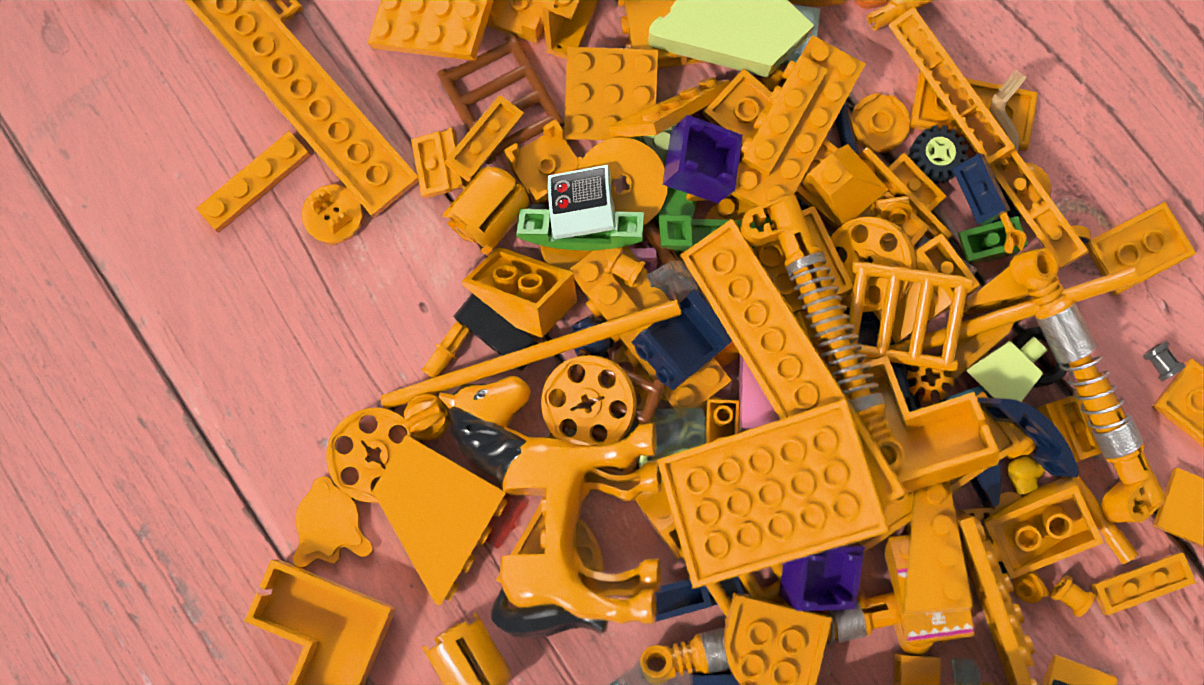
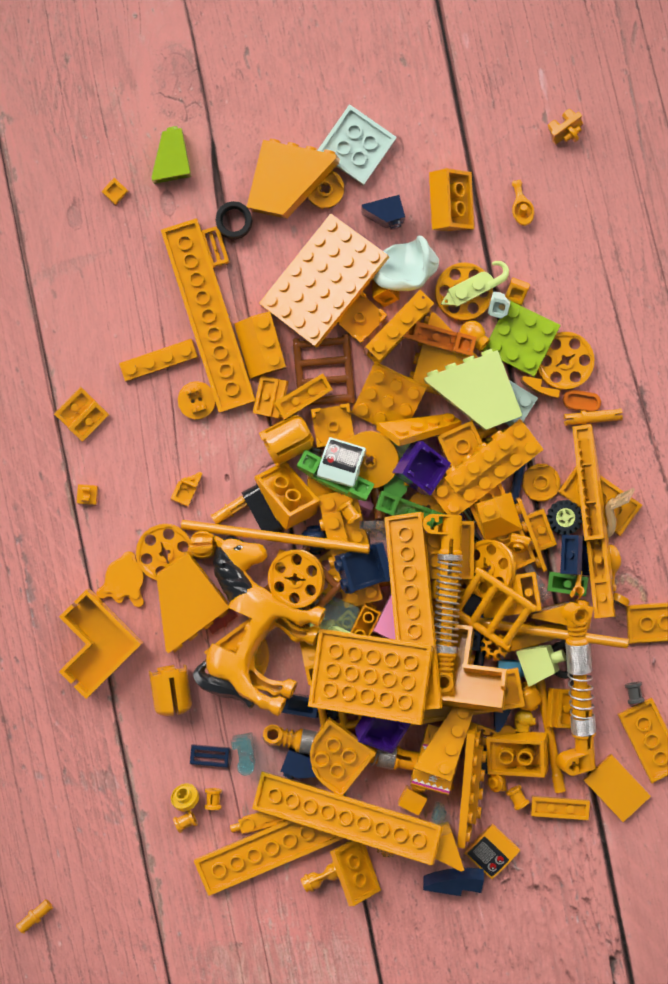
camera: 25 degrees right, 10 degrees up
(167, 304) = (81, 414): none -> light orange slope
(222, 419) = (87, 494): none -> light orange tile
(368, 348) = (185, 489): none -> light orange slope
(393, 97) = (260, 345): none -> light orange slope
(1052, 450) = (542, 715): dark blue slope -> none

